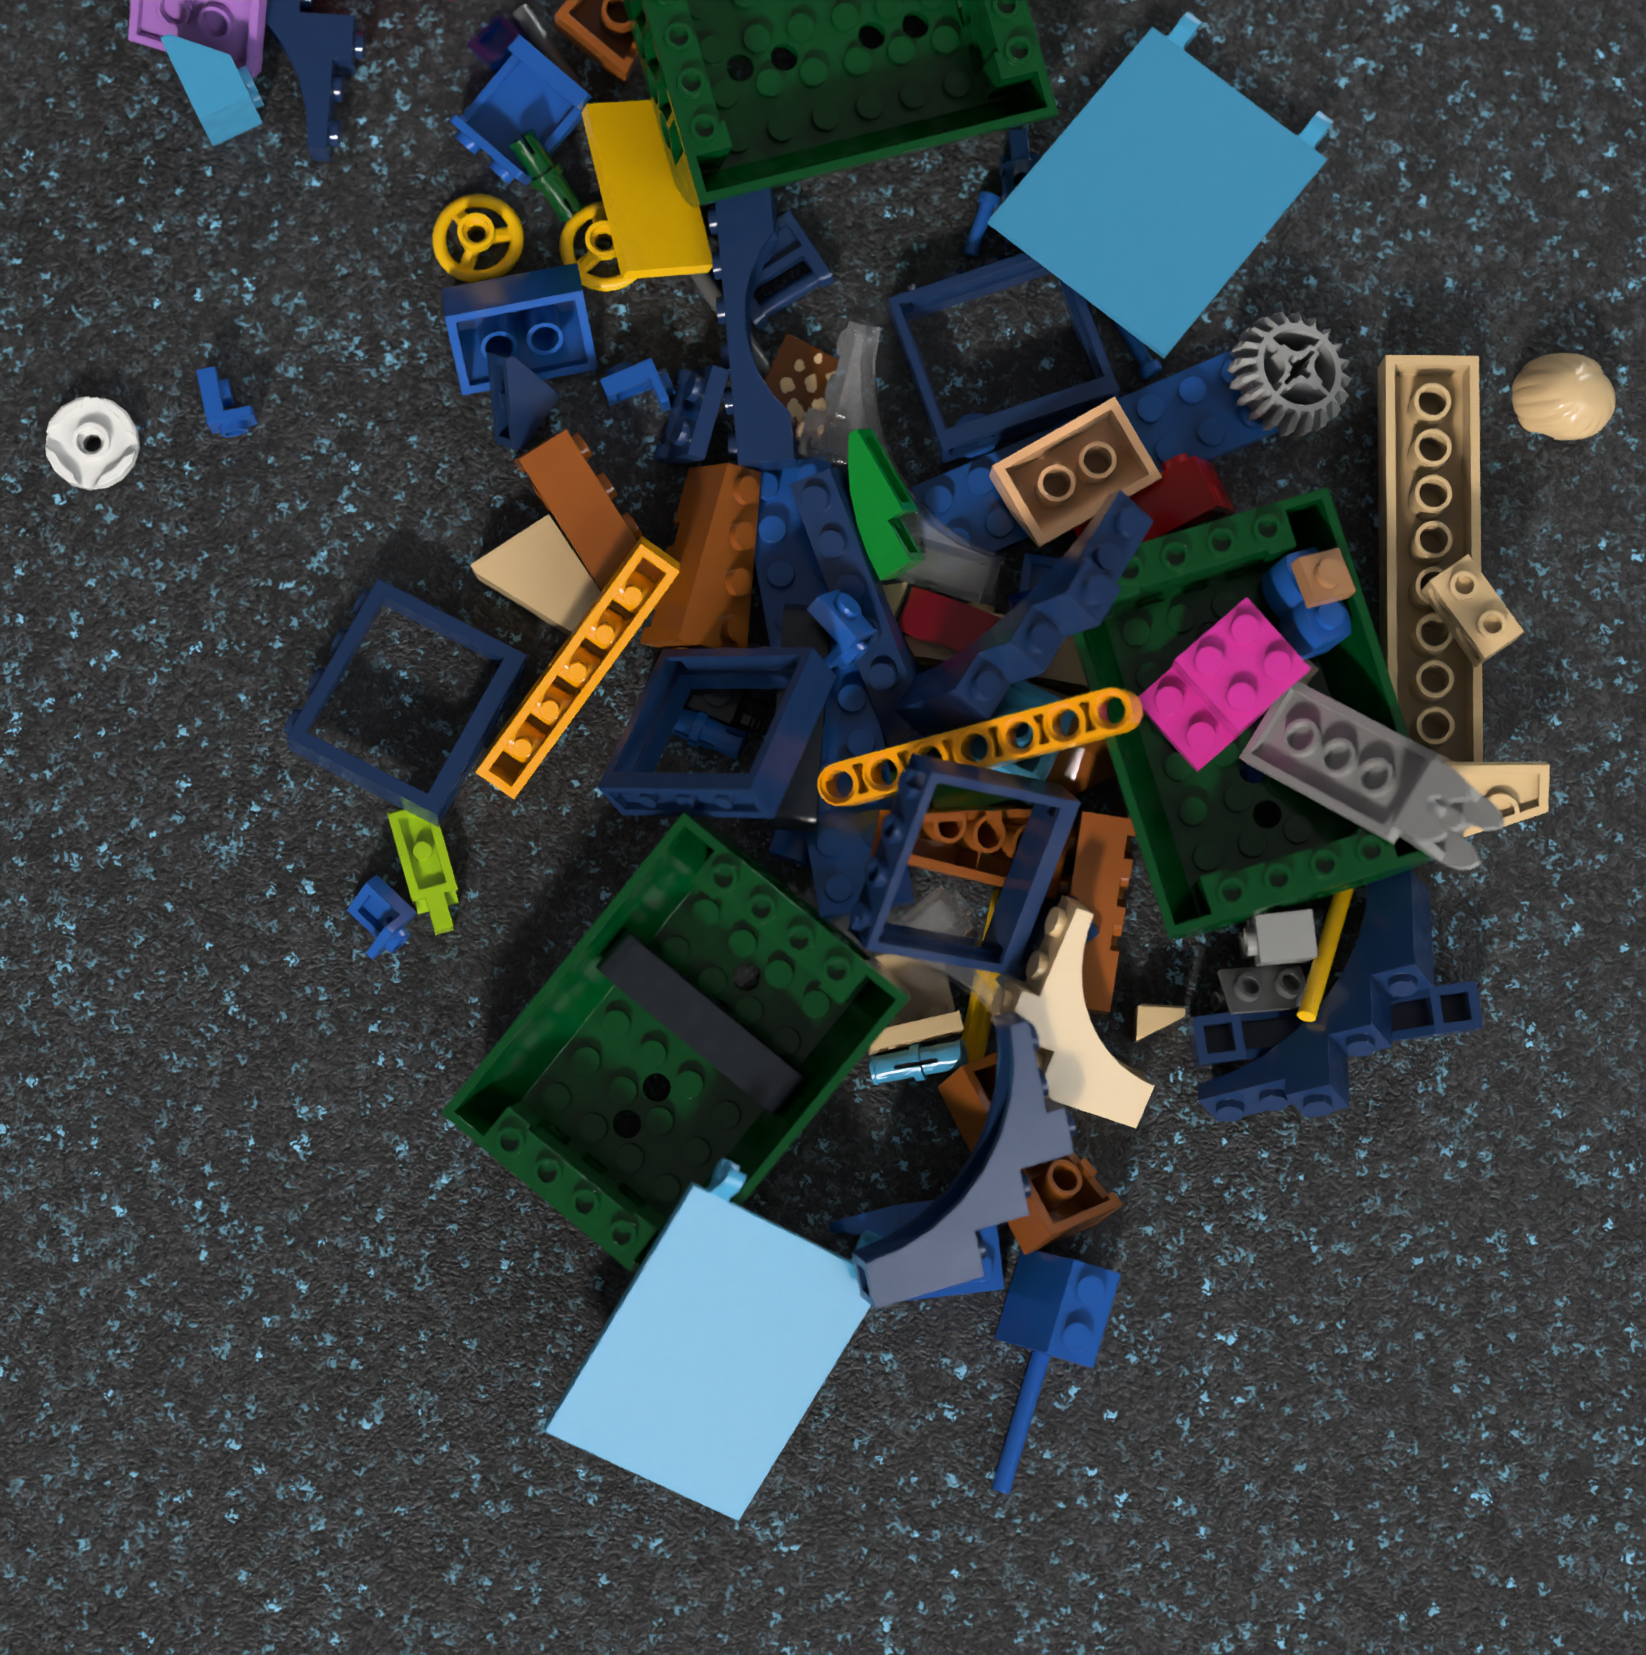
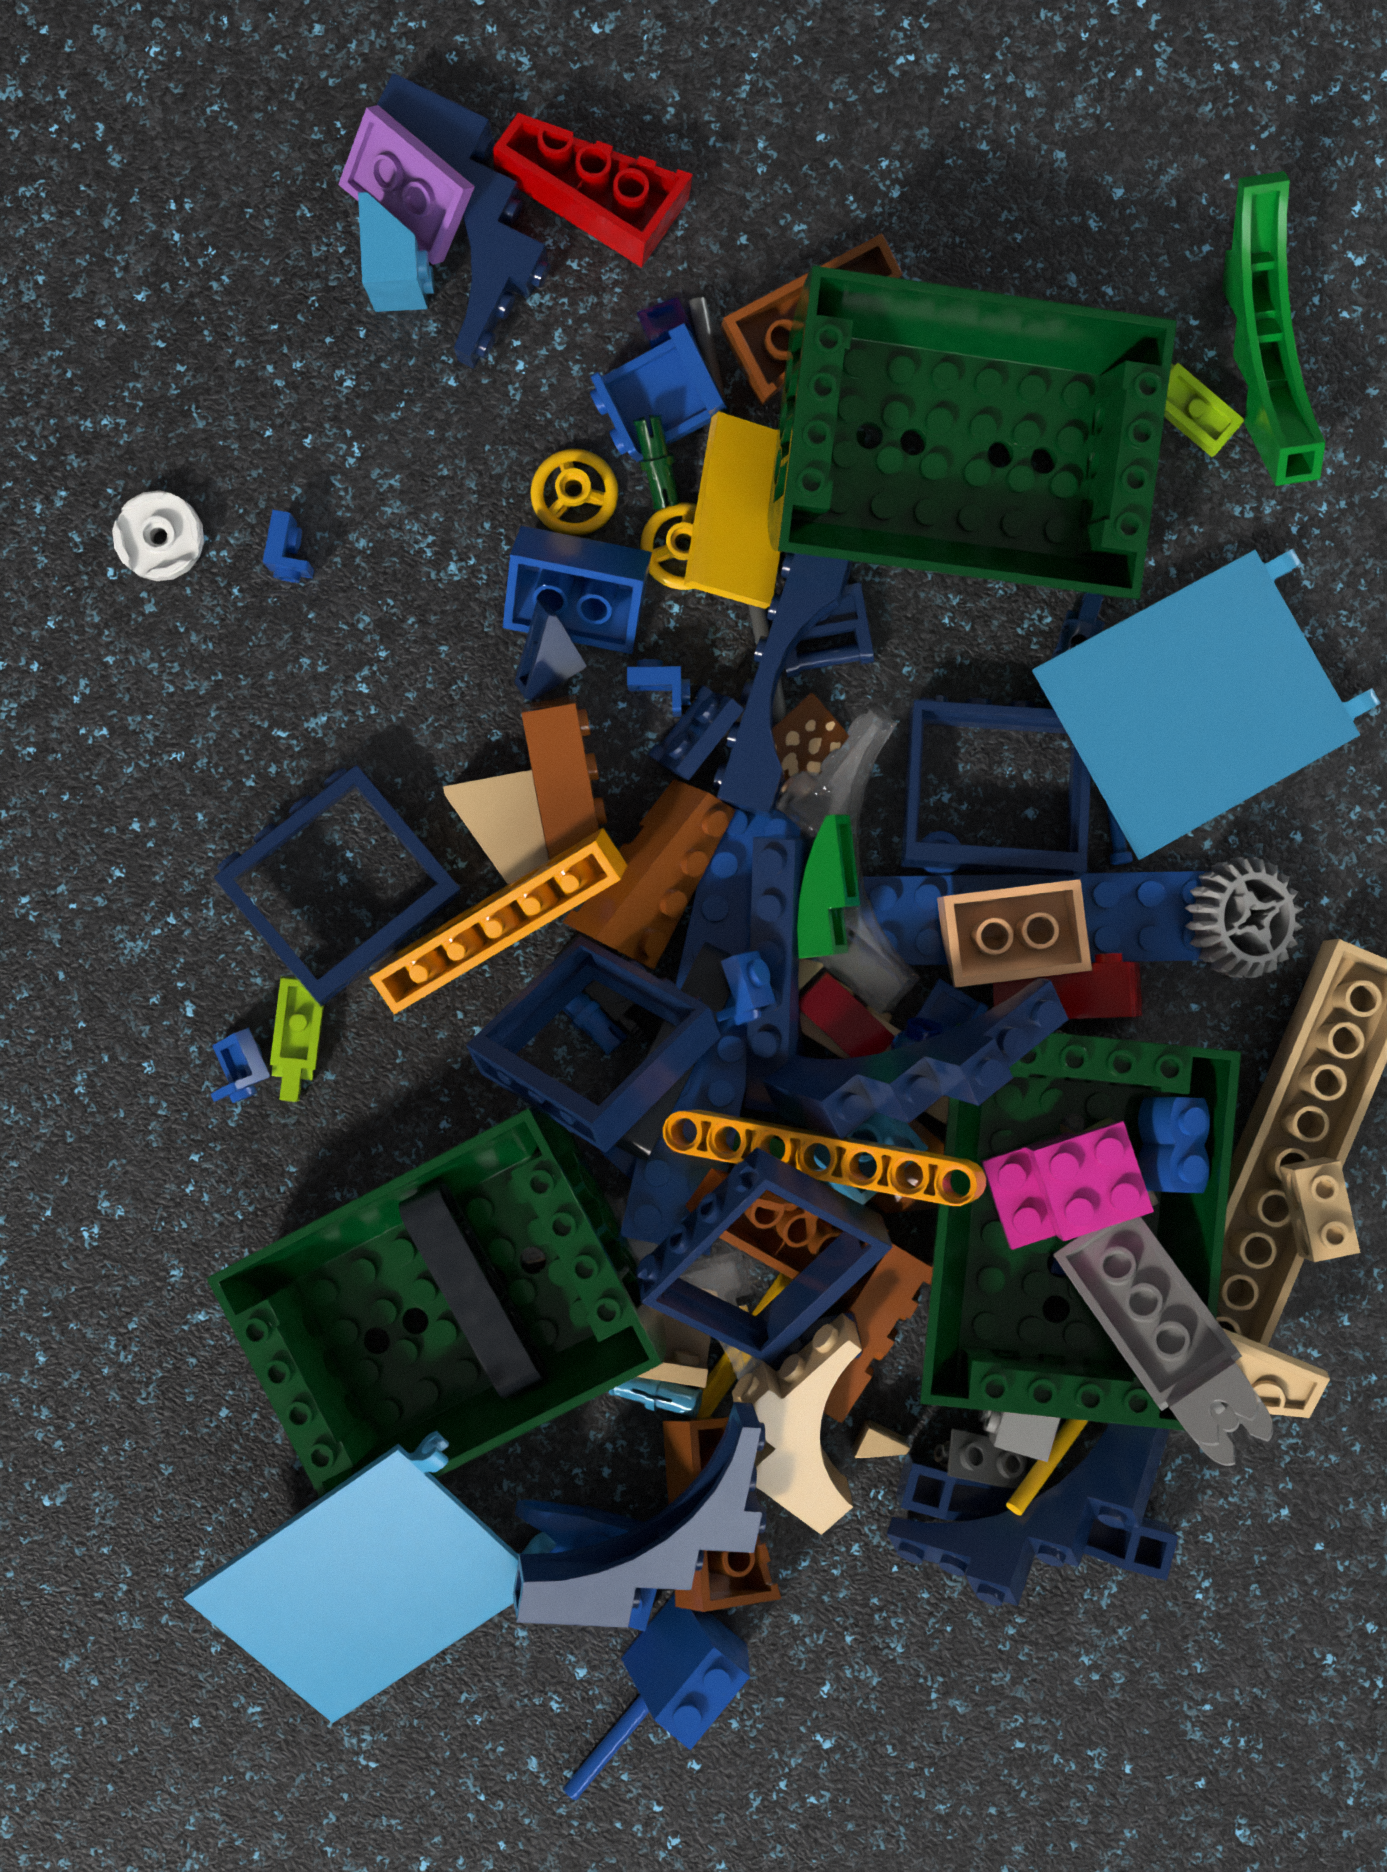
camera: 20 degrees right, 5 degrees up
(988, 202) = (1039, 648): blue piece -> none
(1323, 578) = (1200, 1134): medium nougat plate -> none

